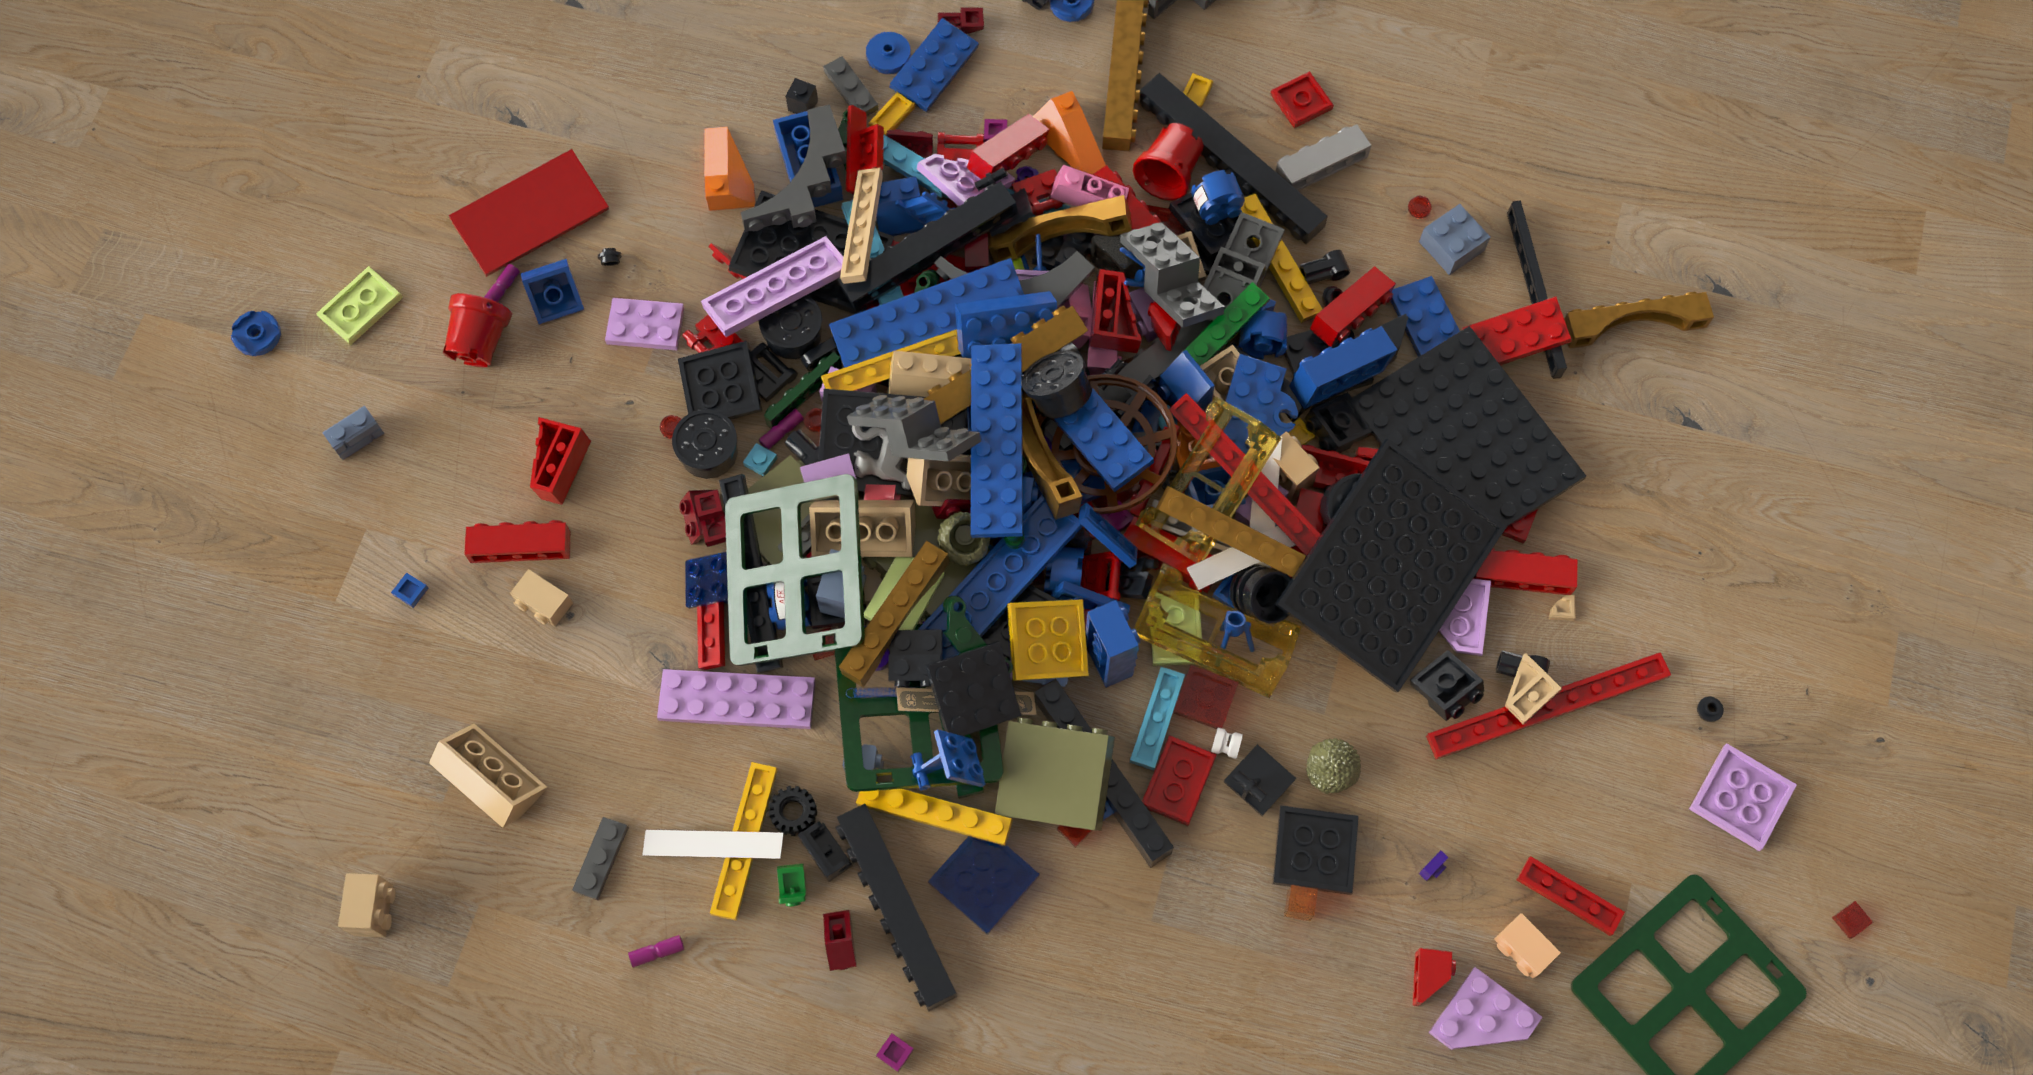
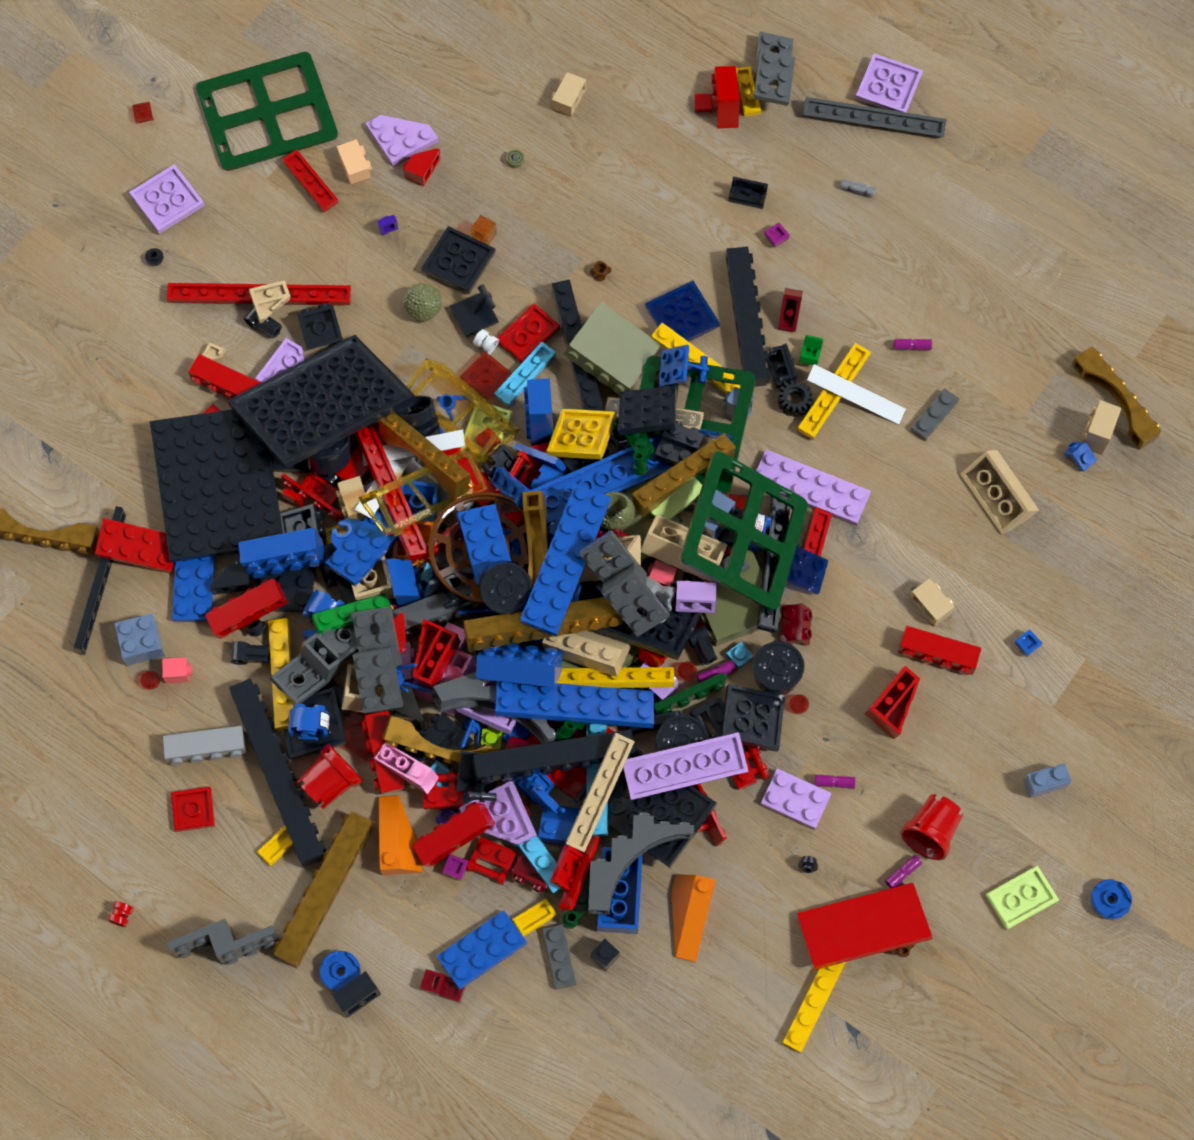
camera: 160 degrees left, 0 degrees up
(315, 936) = (1093, 368): none -> pearl gold arch
(390, 866) = (1081, 455): none -> blue bracket
(552, 291) = (863, 851): blue slope -> none
(567, 118) = (812, 1007): none -> yellow plate
(601, 356) = (832, 781): none -> magenta piece
(712, 517) = (790, 609): dark red slope -> none
(891, 61) = (515, 990): blue plate -> none
(1125, 902) = (599, 265): none -> reddish brown plate
(1170, 604) = (483, 438): none -> clear red plate
(1308, 1041) = (515, 158): none -> olive tile
(1396, 223) = (176, 670): none -> coral brick

